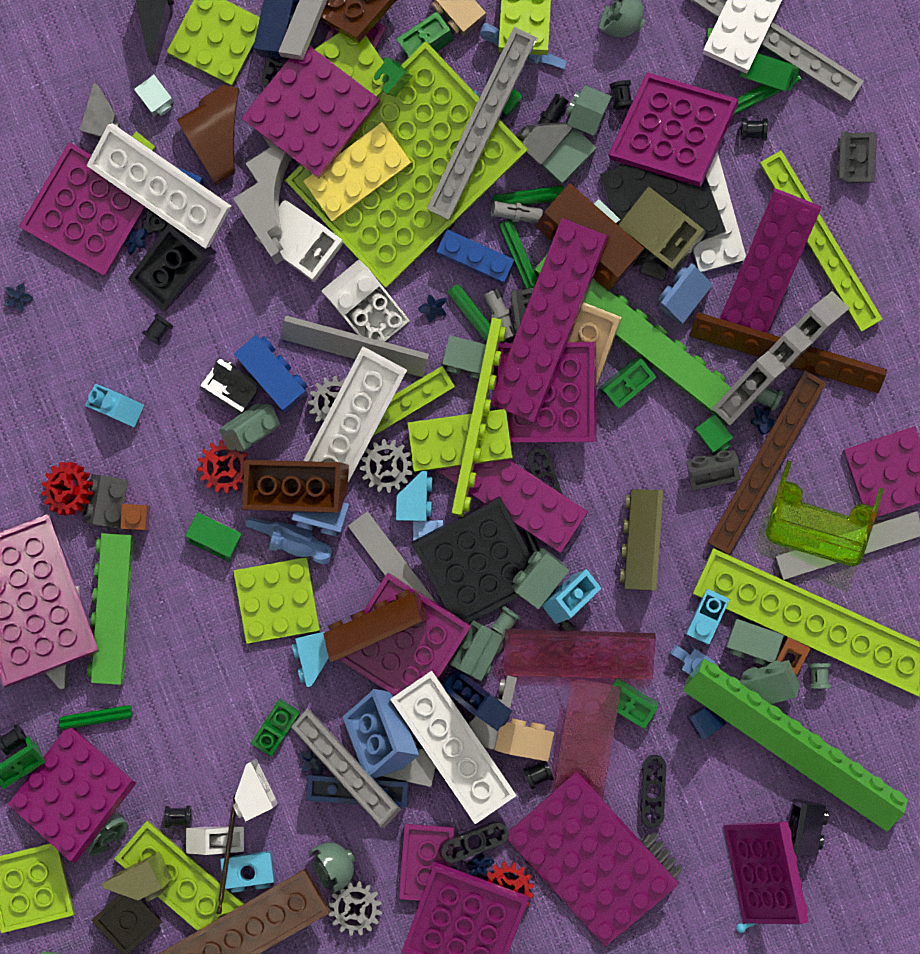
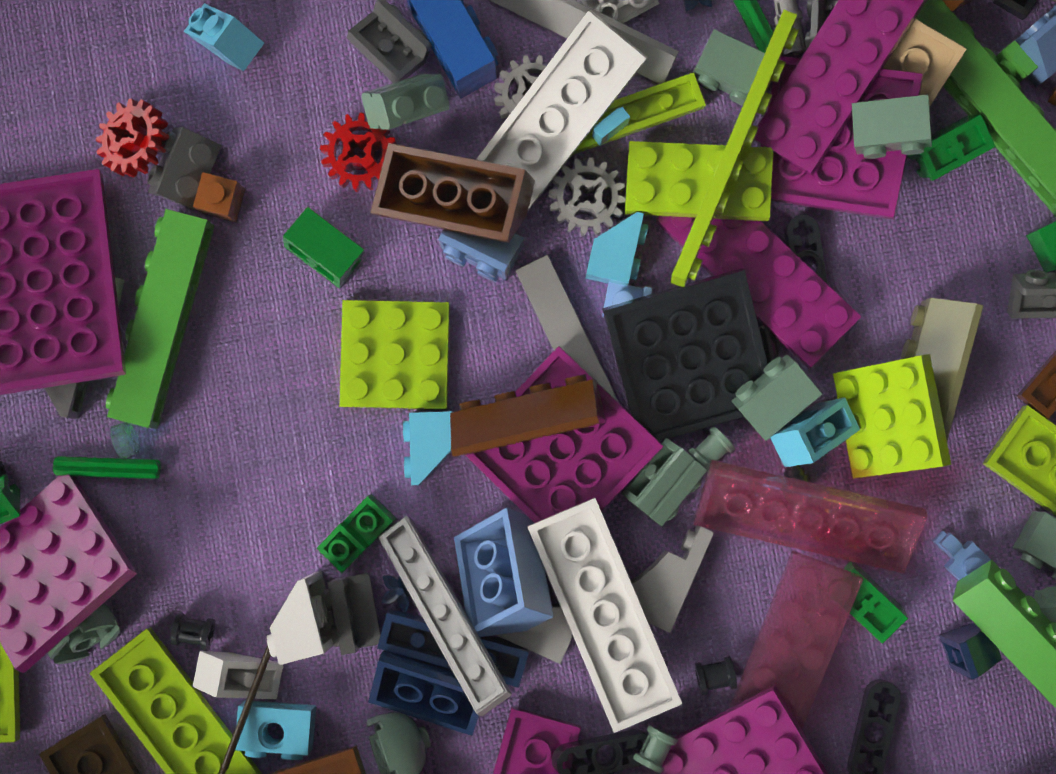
camera: 15 degrees right, 0 degrees up
(105, 695) = (125, 439): none -> clear light blue tile
(142, 879) = (107, 719): olive slope -> none
(285, 781) = (354, 613): none -> dark grey bracket
(292, 539) = (433, 273): medium blue animal -> none
(343, 824) = (422, 692): none -> dark blue slope
(392, 416) = (610, 125): none -> medium azure tile
(477, 699) = (656, 555): dark blue brick -> none
(506, 830) = (655, 749): none -> sand green bush
(524, 740) = (707, 625): tan brick -> none
(579, 382) = (892, 126): none -> sand green brick
(621, 575) = (896, 417): none -> lime plate
(660, 315) = (1016, 62): none -> bright green plate
(707, 616) = (1000, 501): medium azure slope -> none

